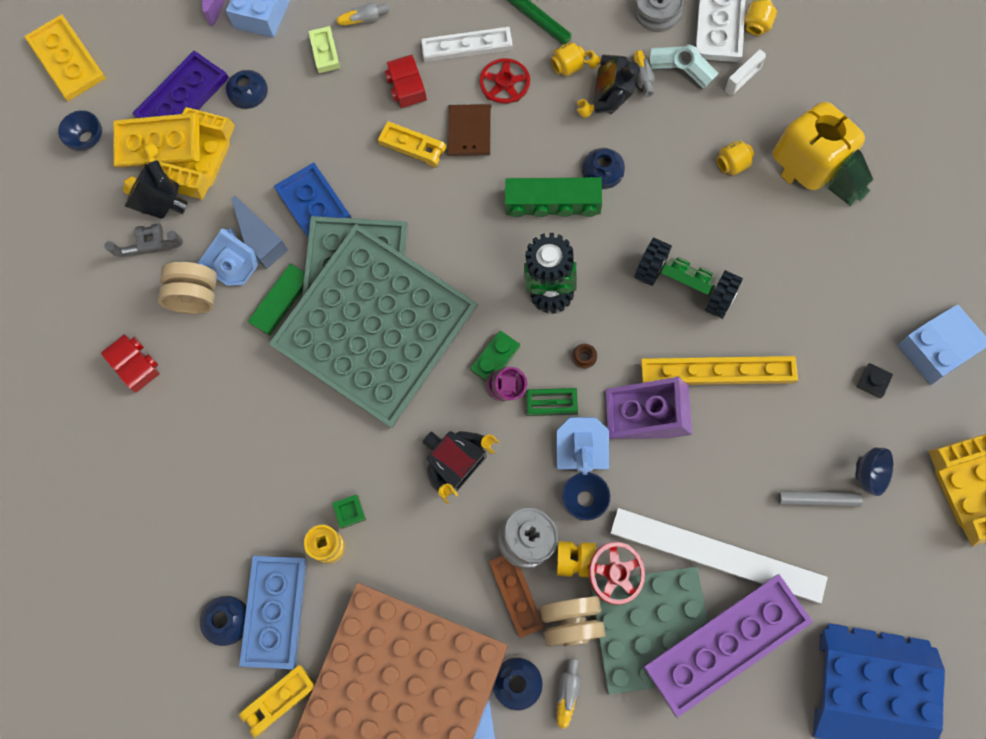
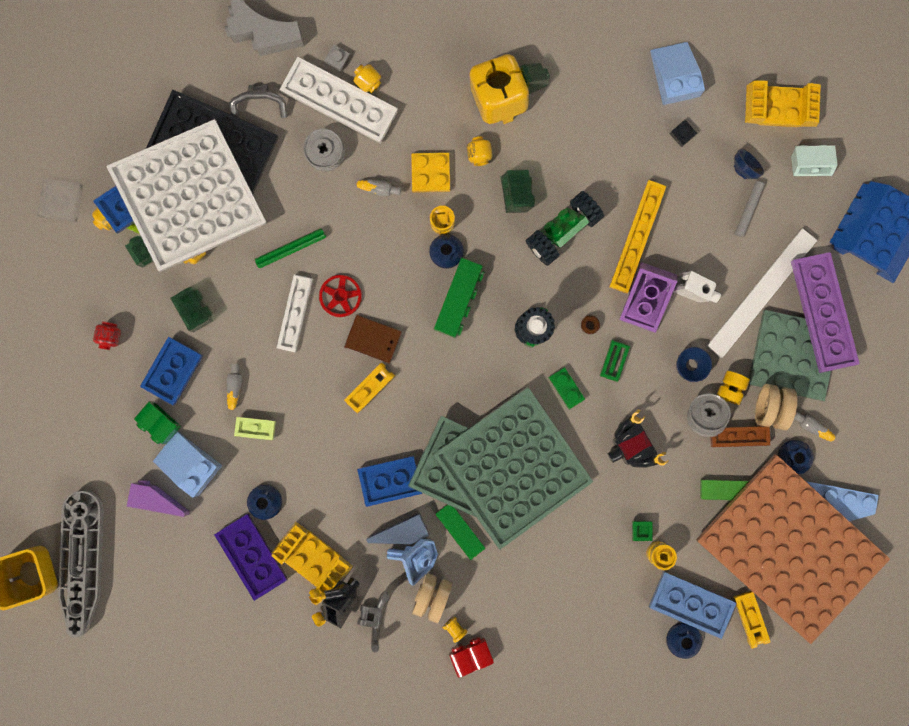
camera: 75 degrees left, 15 degrees up
(65, 57) = (171, 643): yellow tile -> none
(77, 124) = (247, 654): dark blue piece -> none
(159, 332) = (454, 629): none -> yellow bush
(172, 135) = (290, 588): yellow tile -> none
(406, 81) = (312, 373): red brick -> none
(437, 593) = (720, 489): none -> bright green tile
(506, 384) = (595, 388): magenta wheel -> none
(568, 59) = (343, 240): yellow head -> none
(583, 444) = (657, 351): light blue piece -> none
(613, 84) = (384, 215): black torso -> none
(616, 573) = (755, 365): wheel -> none
(636, 145) = (442, 220): none -> yellow wheel
(671, 57) = (391, 147): light aqua piece -> none
(686, 119) = (430, 172): none -> yellow plate
(688, 451) = (696, 287): none -> white torso
(708, 211) = (517, 191): none -> clear green brick
(745, 72) = (413, 115): white tile -> none
(926, 553) = (814, 160): none -> light aqua brick

